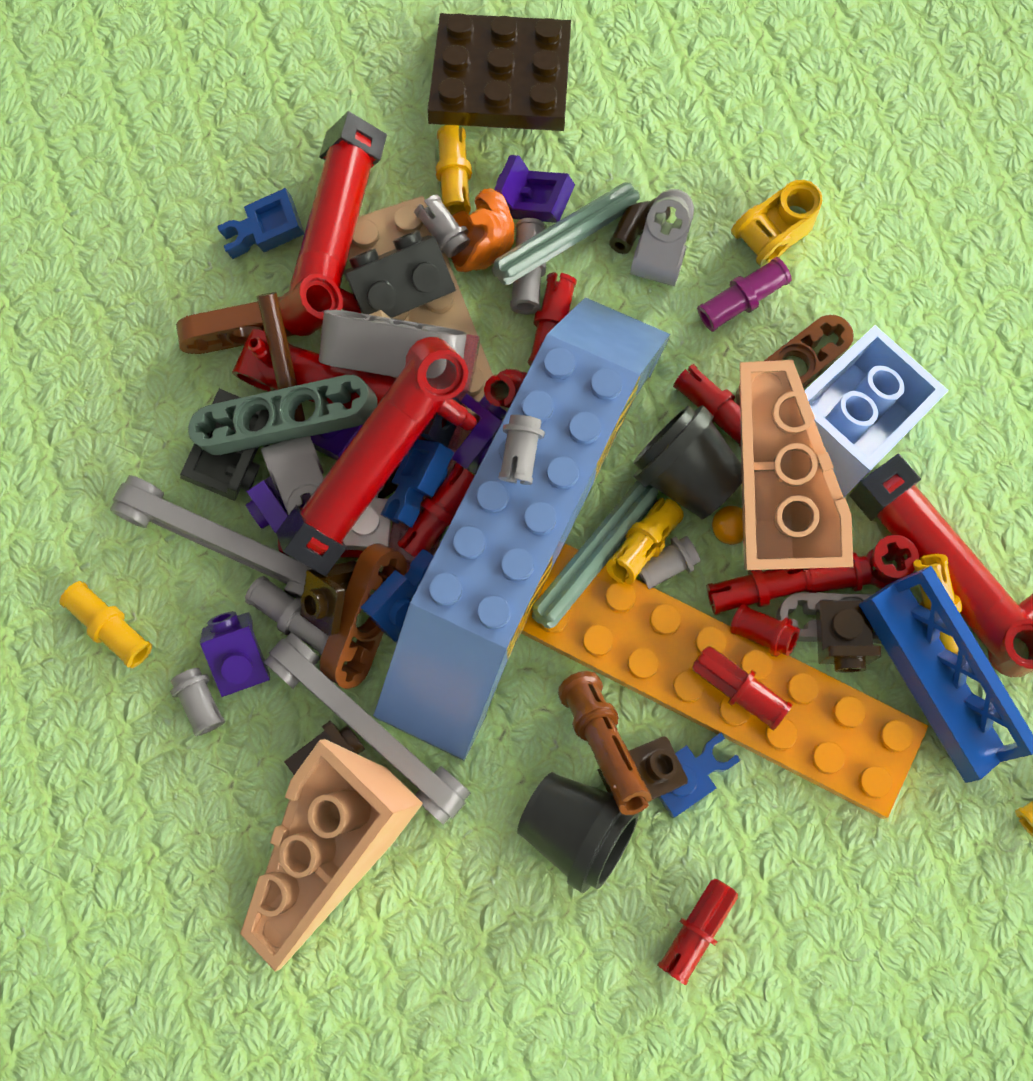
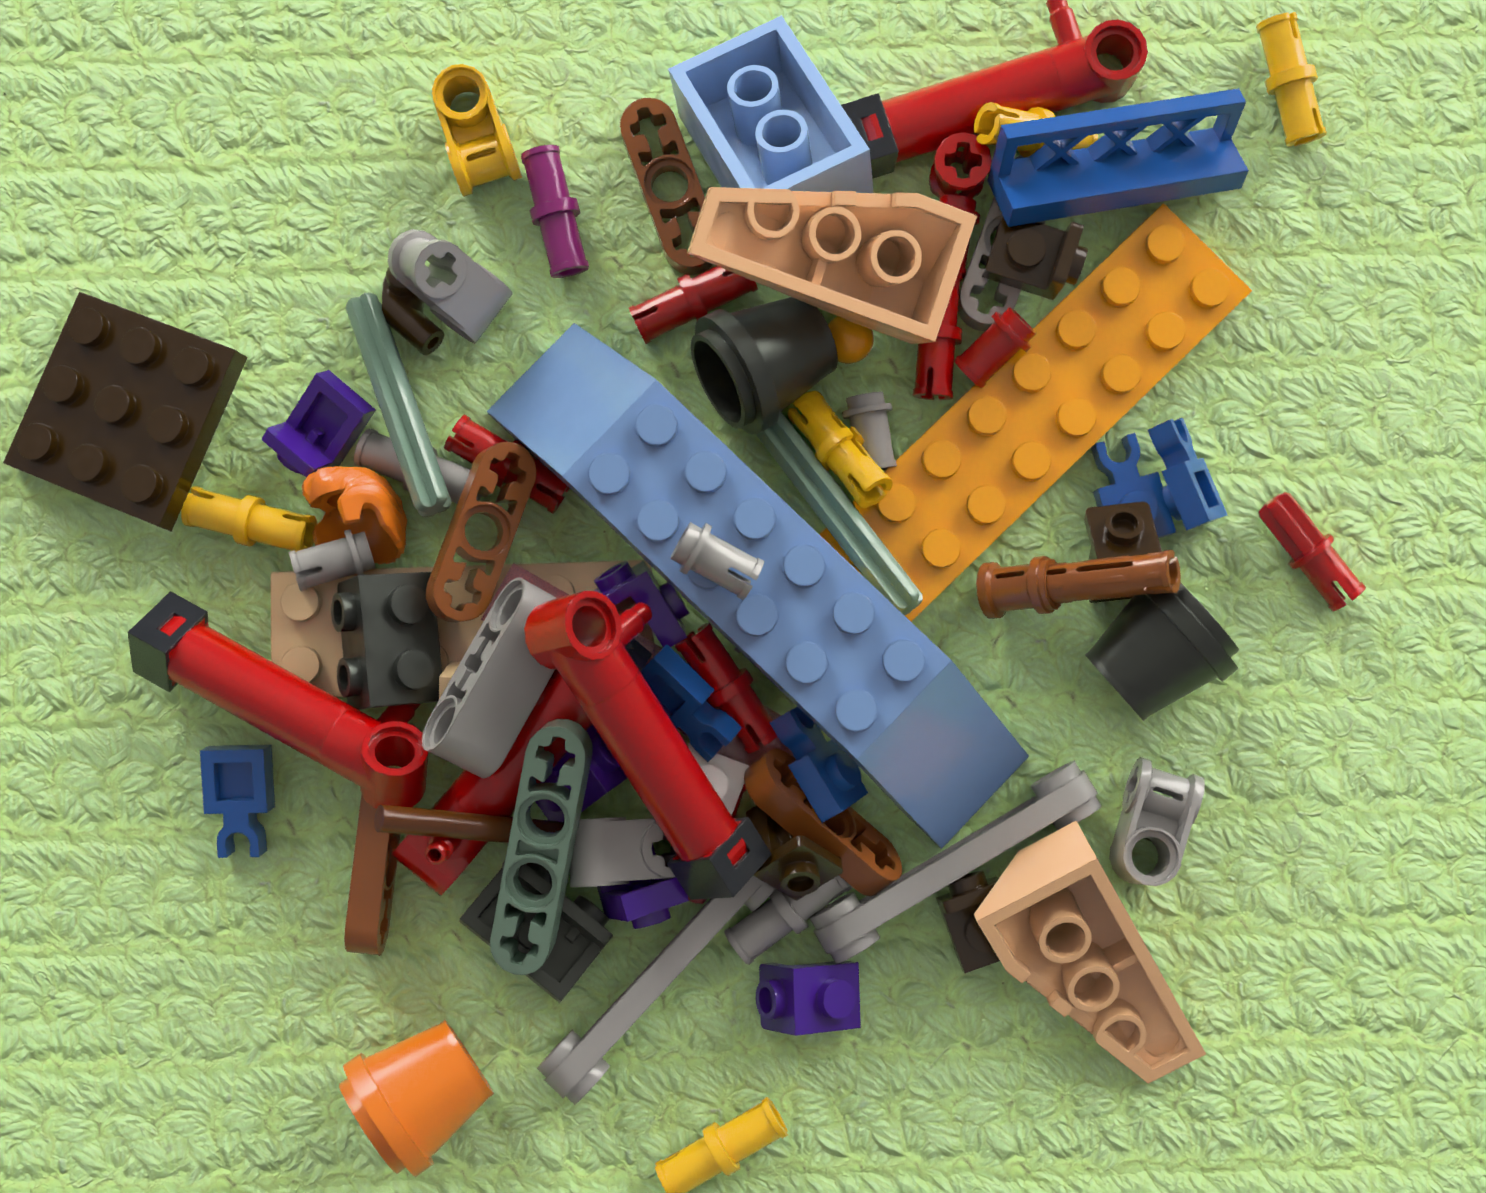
camera: 70 degrees left, 10 degrees up
(86, 397) = (414, 1096): none -> orange piece
(197, 701) = (856, 1059): light grey pin -> none
(446, 870) = (1156, 818): none -> light grey piece
(503, 387) = (594, 546): red pin -> none
(530, 299) = (481, 582): none -> dark orange beam
(716, 813) = (1189, 487): none -> blue plate
(741, 687) = (1060, 399): red axle -> none

